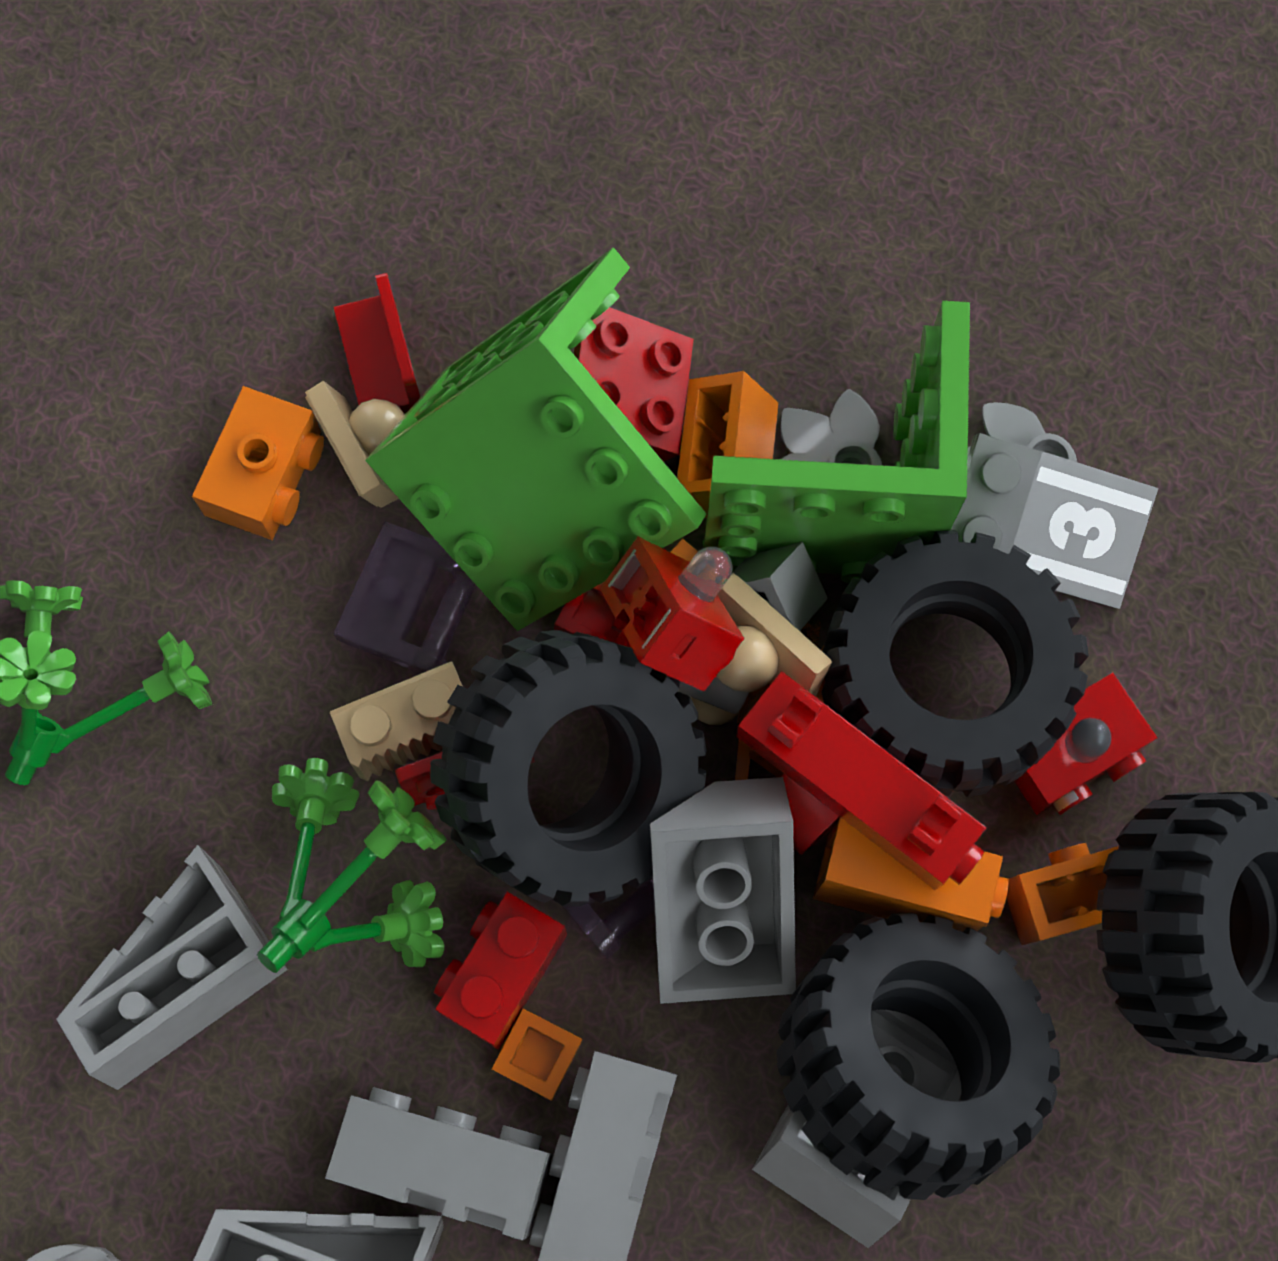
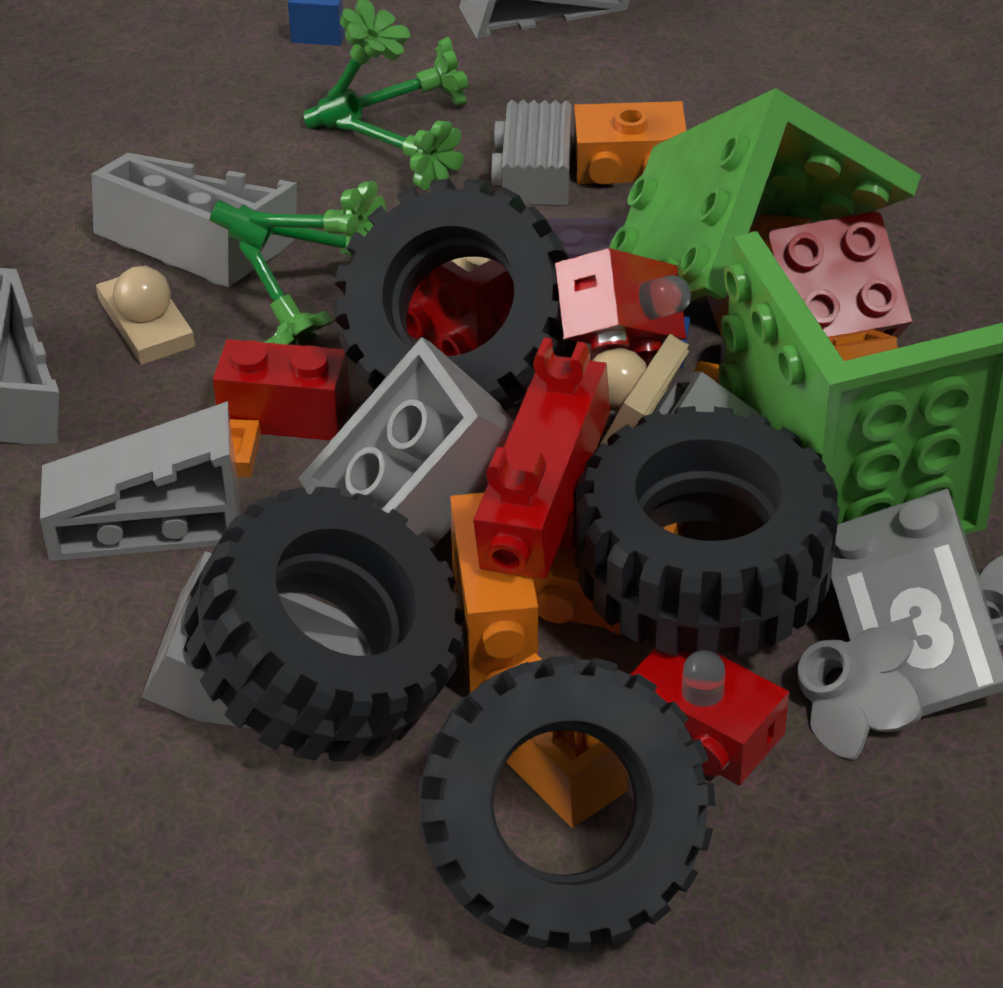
camera: 70 degrees right, 30 degrees down
(224, 565) = (534, 151): none -> light grey brick
(285, 1073) = (145, 314): none -> tan tile
(441, 1163) = (103, 387): light grey wedge -> none
(1106, 603) = (865, 695): none -> light grey plate

